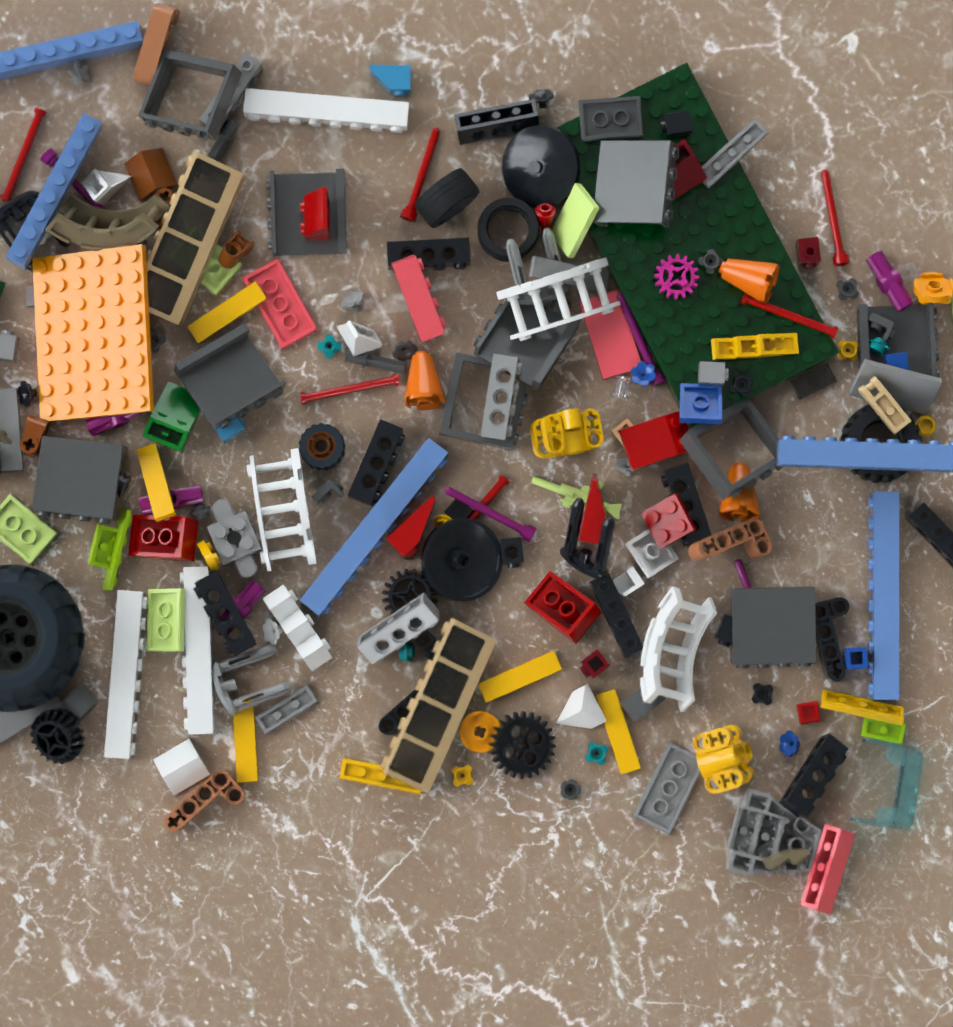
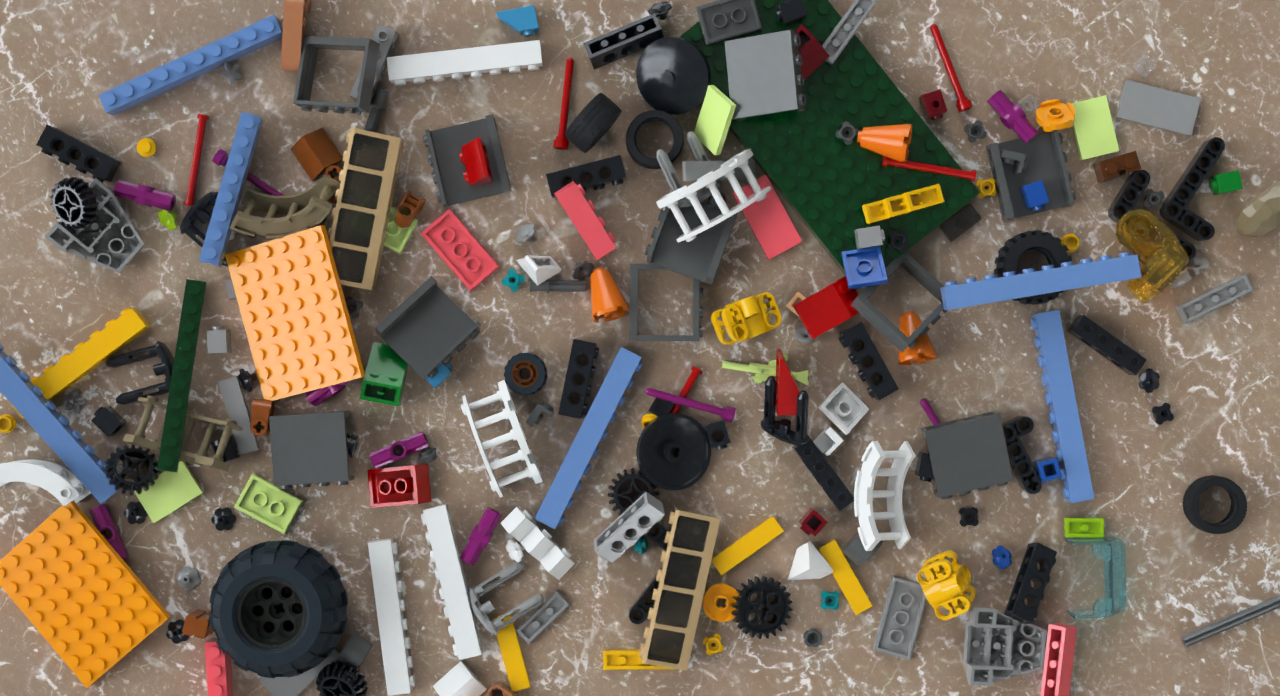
camera: 10 degrees left, 5 degrees up
(103, 185) = (275, 173): white slope -> none
(108, 546) = (351, 505): lime bracket -> none
(156, 482) = (381, 438): yellow tile -> none
(166, 620) = (417, 560): yellowish green tile -> none
(209, 555) = (441, 491): yellow plate -> none
(215, 582) = (455, 520): black brick -> none
(227, 312) = (414, 268): yellow tile -> none
(234, 538) = (464, 473): light grey brick -> none
(349, 389) = (539, 315): red bar -> none
(411, 531) = (621, 440): red slope -> none
(501, 364) = (675, 328): light grey brick -> none
(545, 215) = (686, 120): red cone -> none
(563, 607) = (773, 475): red slope -> none
(621, 387) = (787, 264): clear bush -> none
(639, 339) = (815, 246): magenta piece -> none
(641, 370) = (801, 245): blue plant -> none
(668, 521) = (854, 379): plate -> none
(682, 283) = (826, 159): dark pink gear -> none
(726, 539) = (925, 379): nougat beam -> none
(792, 856) = (1026, 659): dark tan slope -> none
(808, 712) = (1013, 524): red tile -> none
(862, 707) = (1061, 511): yellow tile -> none
(878, 346) = (1014, 179): teal plate -> none
(884, 405) = (1033, 235): tan plate -> none
(908, 388) = (1037, 213): light grey tile -> none

